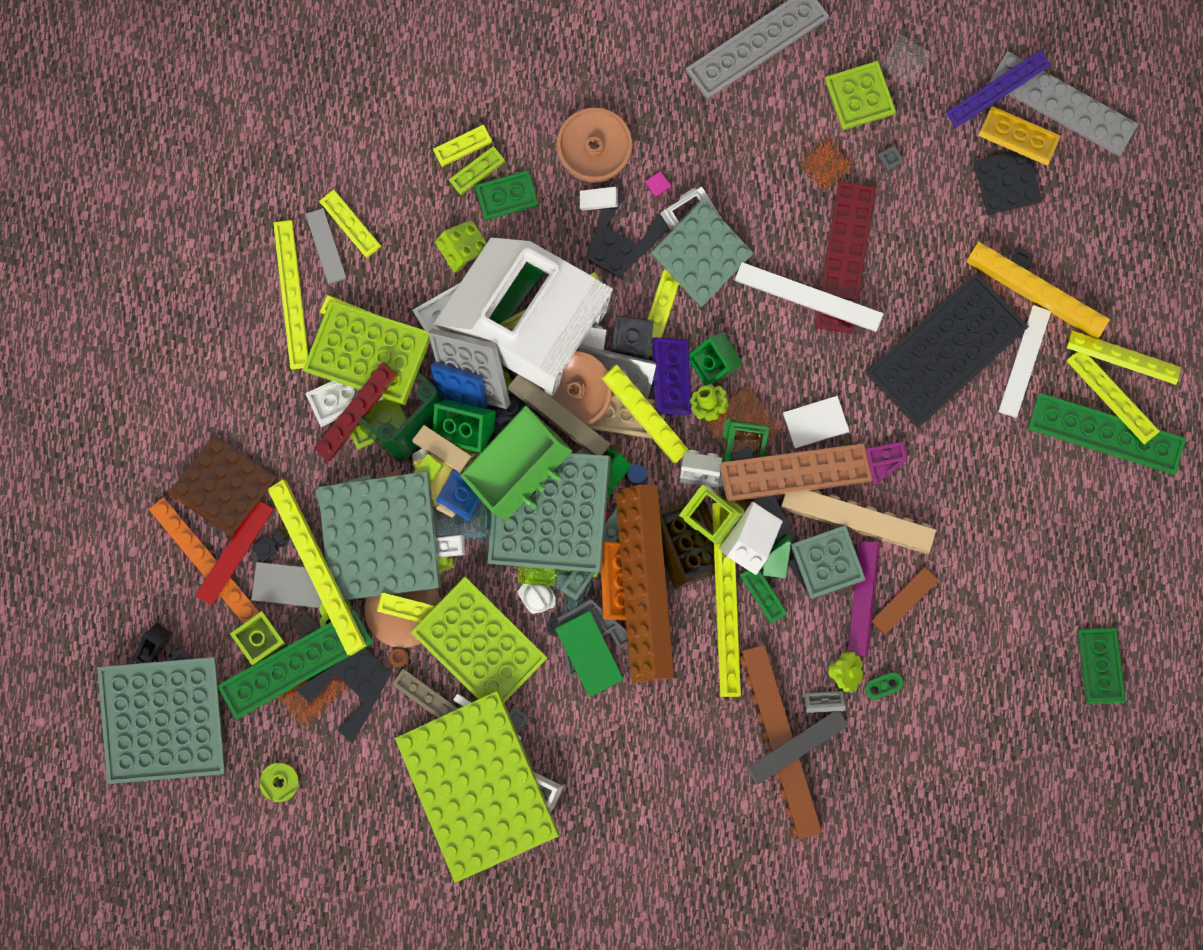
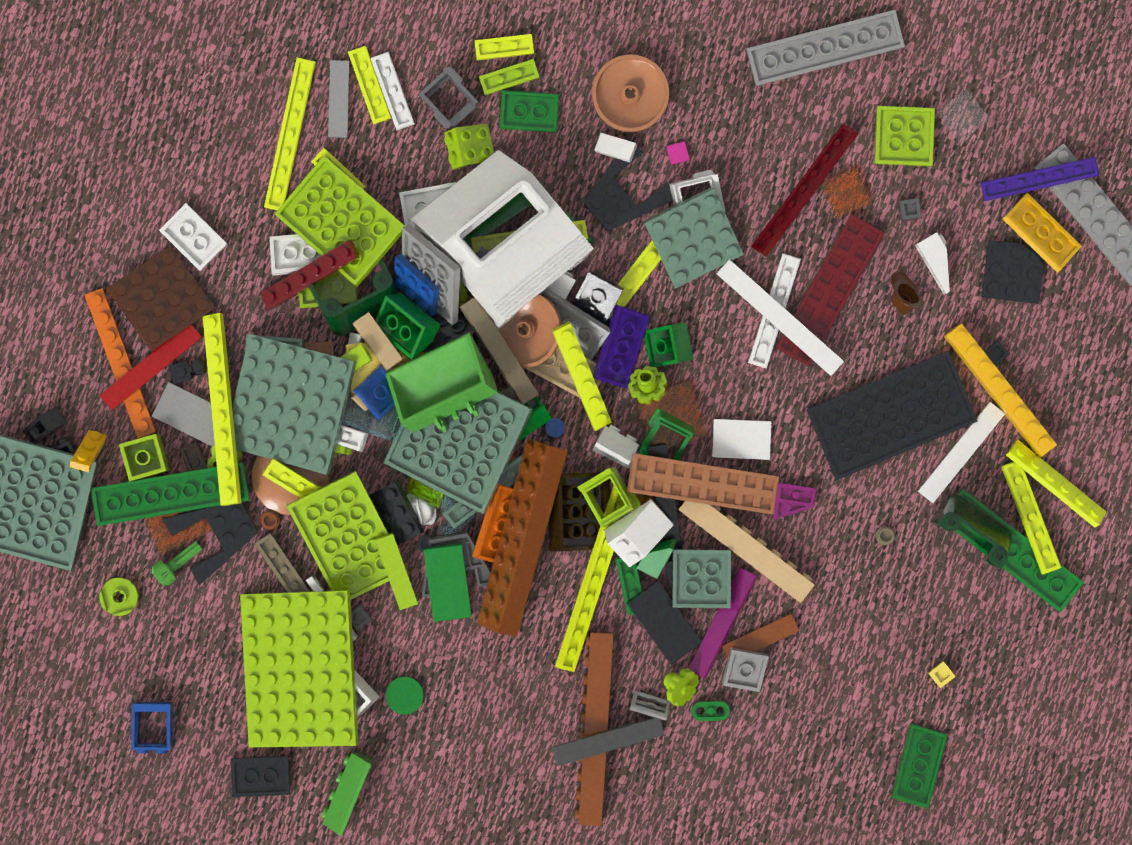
camera: 15 degrees right, 10 degrees up
(203, 650) = (88, 451): none -> yellow plate
(233, 419) = (193, 237): none -> white plate
(321, 732) = (174, 564): none -> bright green piece
(348, 876) = (161, 748): none -> blue window
(373, 221) = (392, 91): none -> white tile
(422, 186) = (449, 73): none -> flat silver piece
(476, 906) = (260, 776): none -> black plate
(517, 605) = (397, 512): none -> black plate
(536, 660) = (396, 571): none -> lime tile
(565, 889) = (347, 793): none -> bright green slope
(586, 778) = (404, 695): none -> green tile
(787, 176) = (804, 190): none -> dark red plate
(801, 315) = (780, 292): none -> white tile
(808, 618) = (663, 622): none -> black tile
(901, 634) = (745, 669): none -> light grey plate
(915, 235) = (905, 295): none -> reddish brown piece
(930, 192) = (935, 257): none -> white slope
(984, 463) = (885, 535): none -> dark tan plate
(1044, 411) = (959, 510): none -> dark green windscreen
(1088, 572) = (941, 674): none -> light yellow plate

